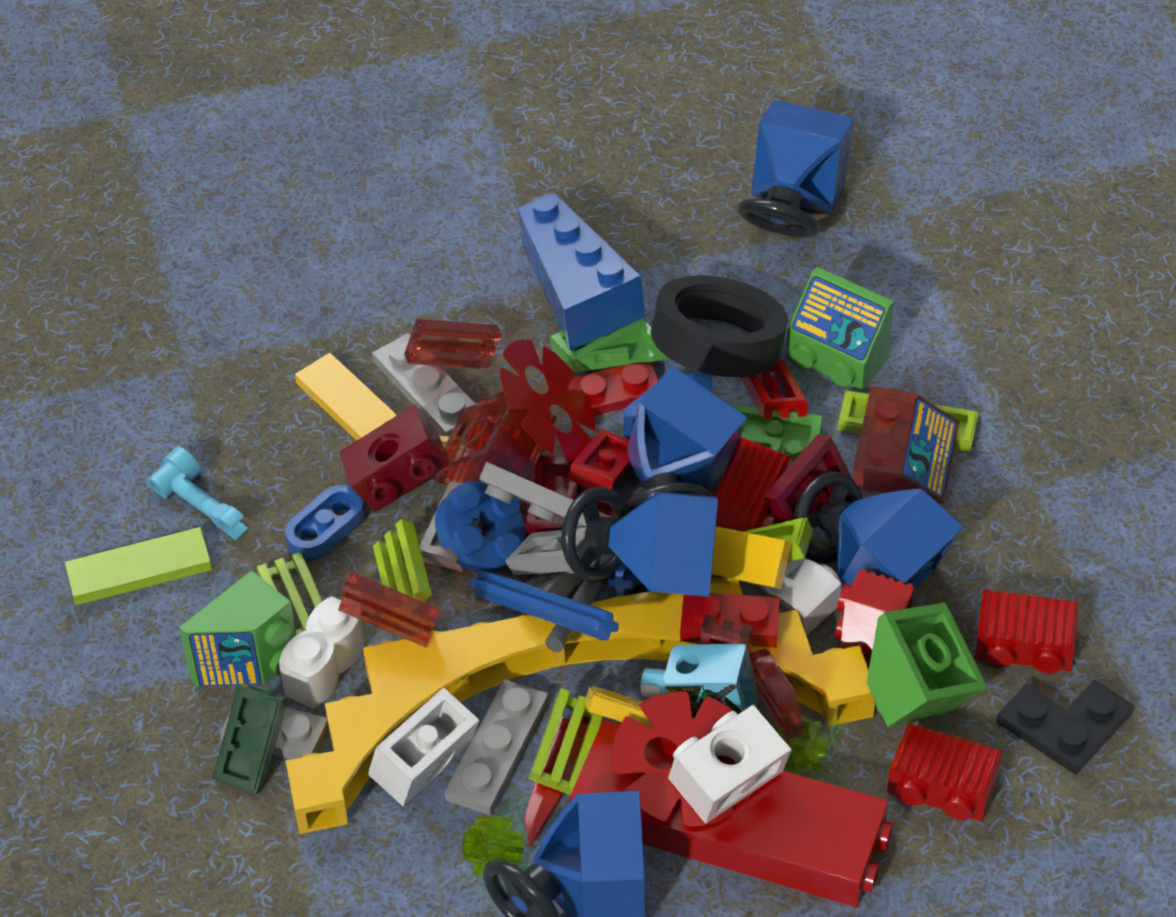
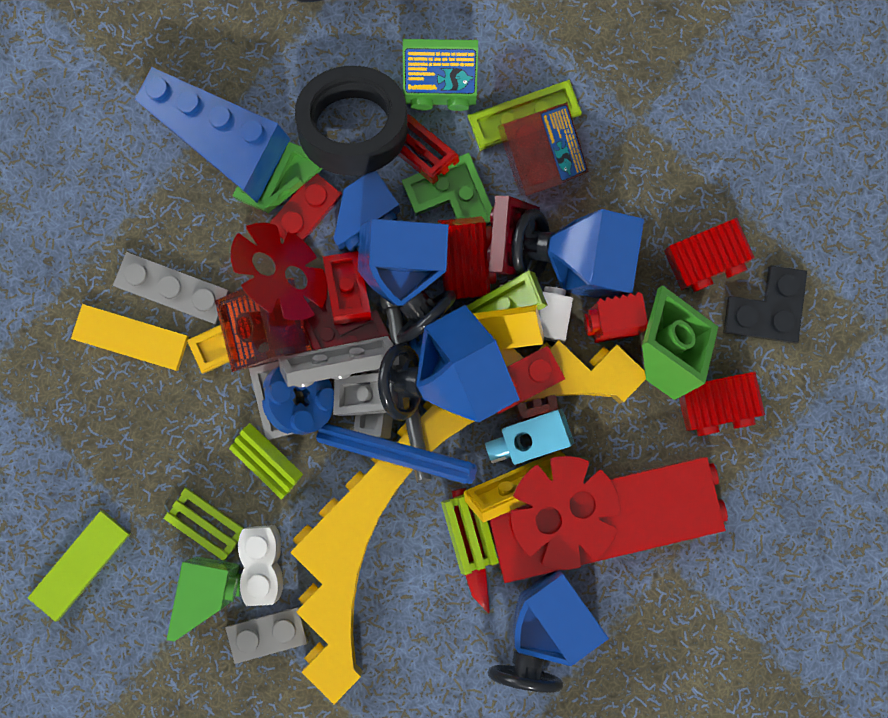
camera: 35 degrees left, 35 degrees up
(177, 476) = (51, 479): medium azure brick -> none
(250, 738) = (262, 664): dark green plate -> none
(322, 523) = (179, 451): blue plate -> none
(388, 609) = (296, 527): clear red tile -> none
(394, 458) = (203, 361): dark red brick -> none
(423, 747) = (382, 601): white brick -> none
(449, 349) = (170, 251): clear red tile -> none
(491, 841) = (473, 640): clear neon green gear -> none
(496, 747) = (420, 556): light grey plate -> none
(714, 786) = (619, 494): white brick -> none
(777, 694) = (593, 424): clear red tile -> none
(806, 748) = (624, 432): clear neon green gear -> none

